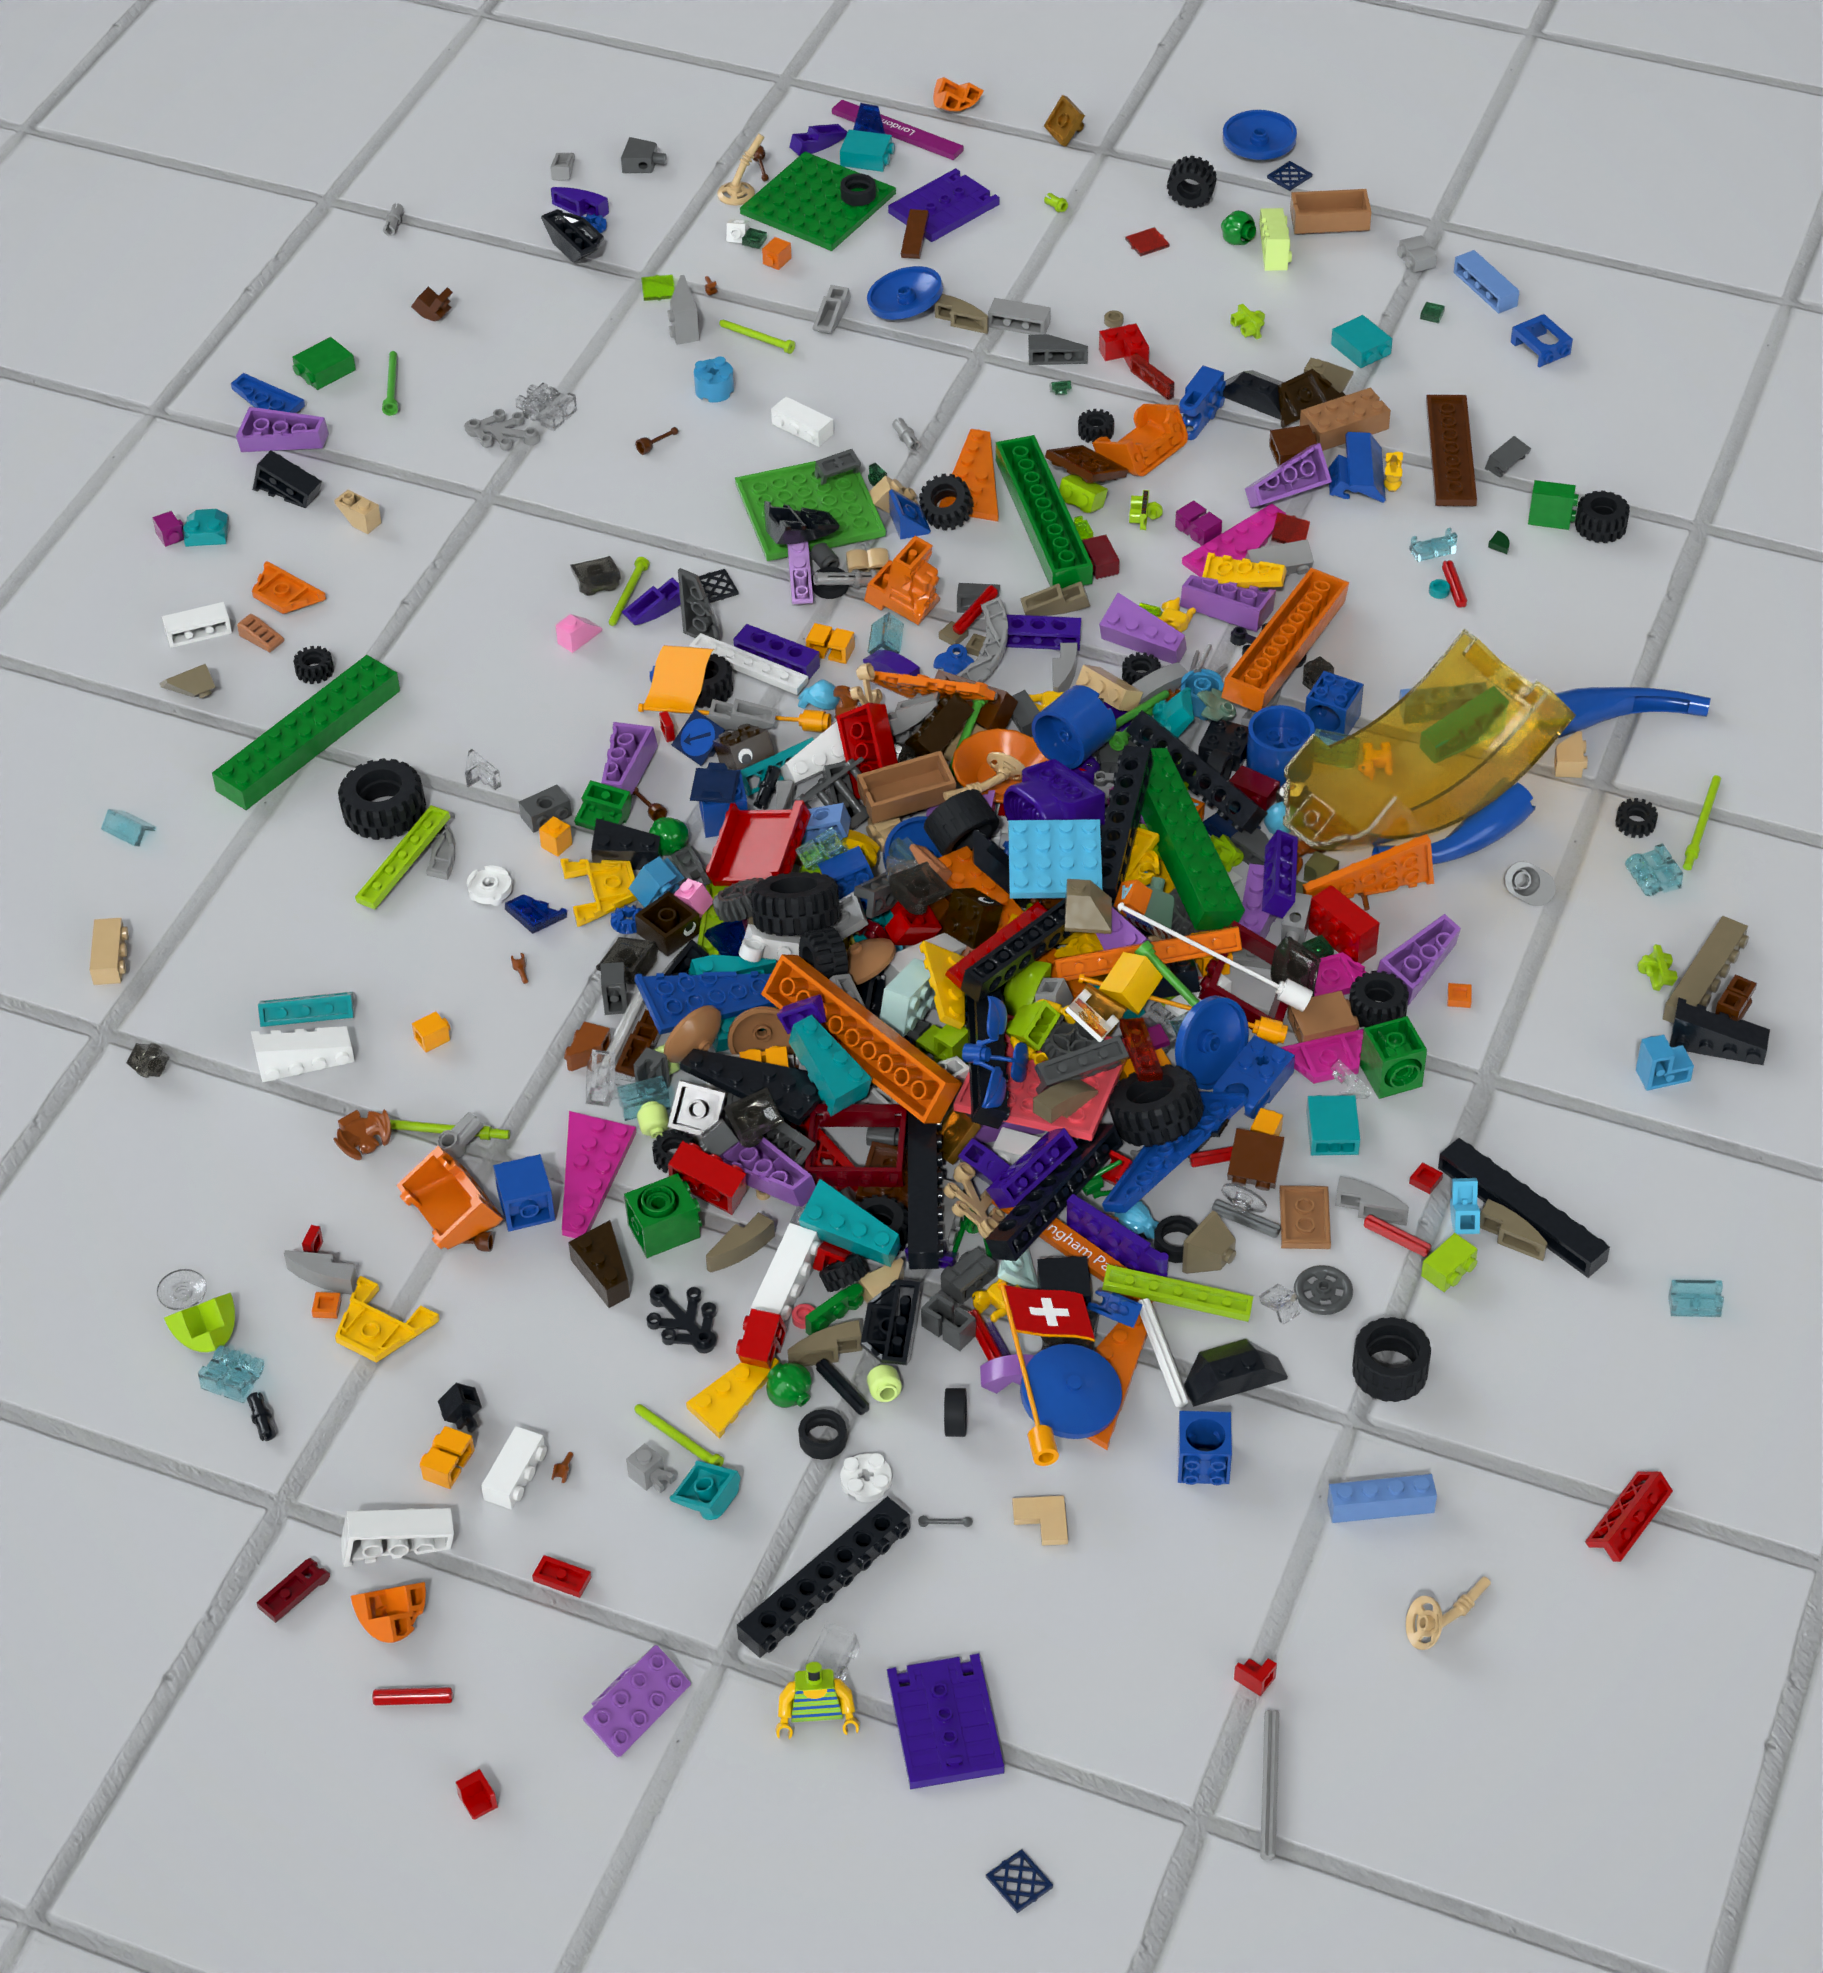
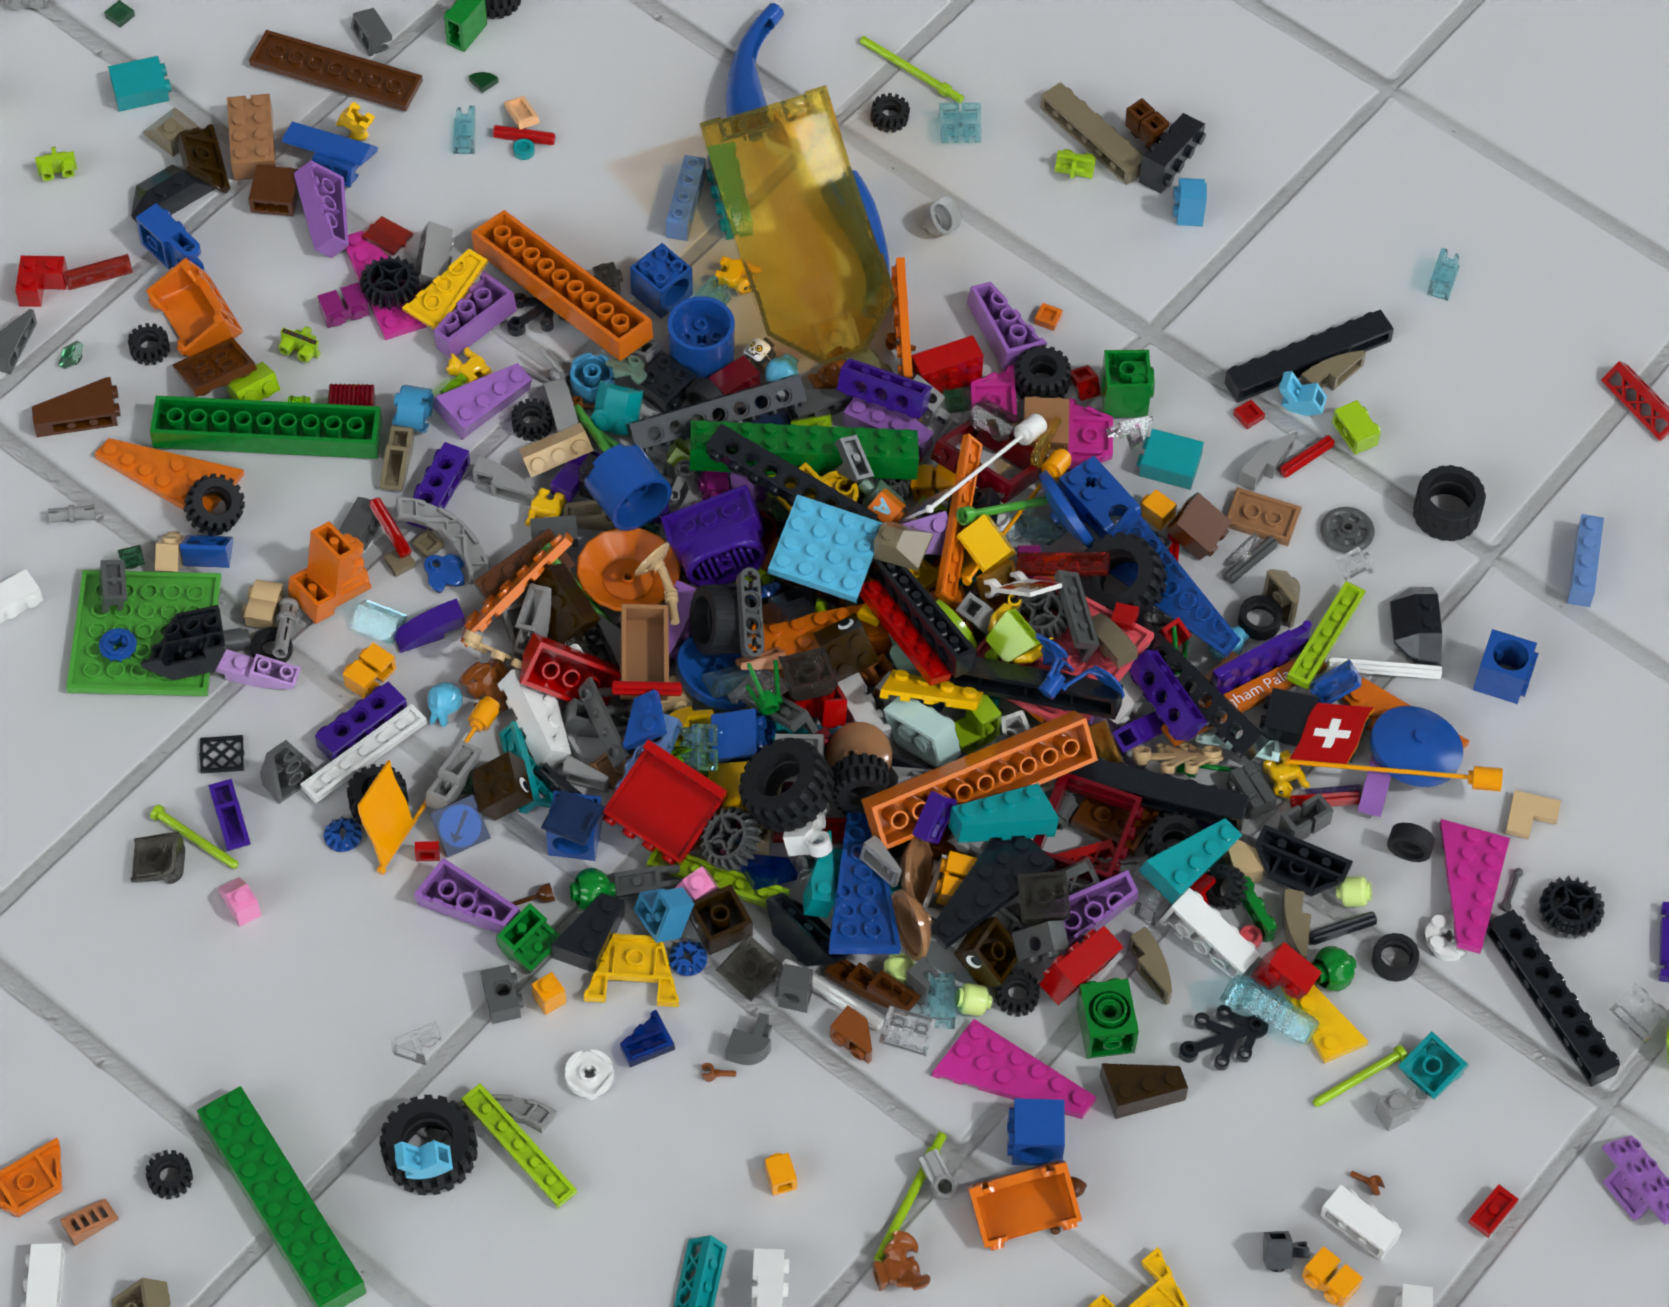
camera: 75 degrees left, 10 degrees up
(346, 779) = (423, 1161): none -> medium azure brick
(553, 981) = (748, 1047): none -> dark grey brick
(721, 1343) = (1269, 1007): none -> clear light blue beam
(749, 995) = (880, 860): none -> light grey slope
(777, 487) = (113, 638): none -> blue gear
(832, 800) = (645, 720): none -> blue wing
(861, 792) = (639, 688): none -> red axle
(878, 867) = (766, 701): none -> green plant
(937, 1582) = (1574, 899): none -> black gear
(949, 1478) = (1473, 875): none -> dark pink wing
(961, 829) = (746, 612): none -> dark grey beam
(1007, 406) = (78, 410): none -> reddish brown slope
(1100, 1107) = (1125, 616): none -> red tile
(1103, 586) = (413, 407): none -> dark azure brick
(1171, 858) = (855, 463): none -> dark grey slope
(1231, 536) = (391, 276): none -> black gear
(1284, 1011) = (1044, 443): none -> clear yellow piece
(1476, 573) = (521, 112): none -> light nougat tile

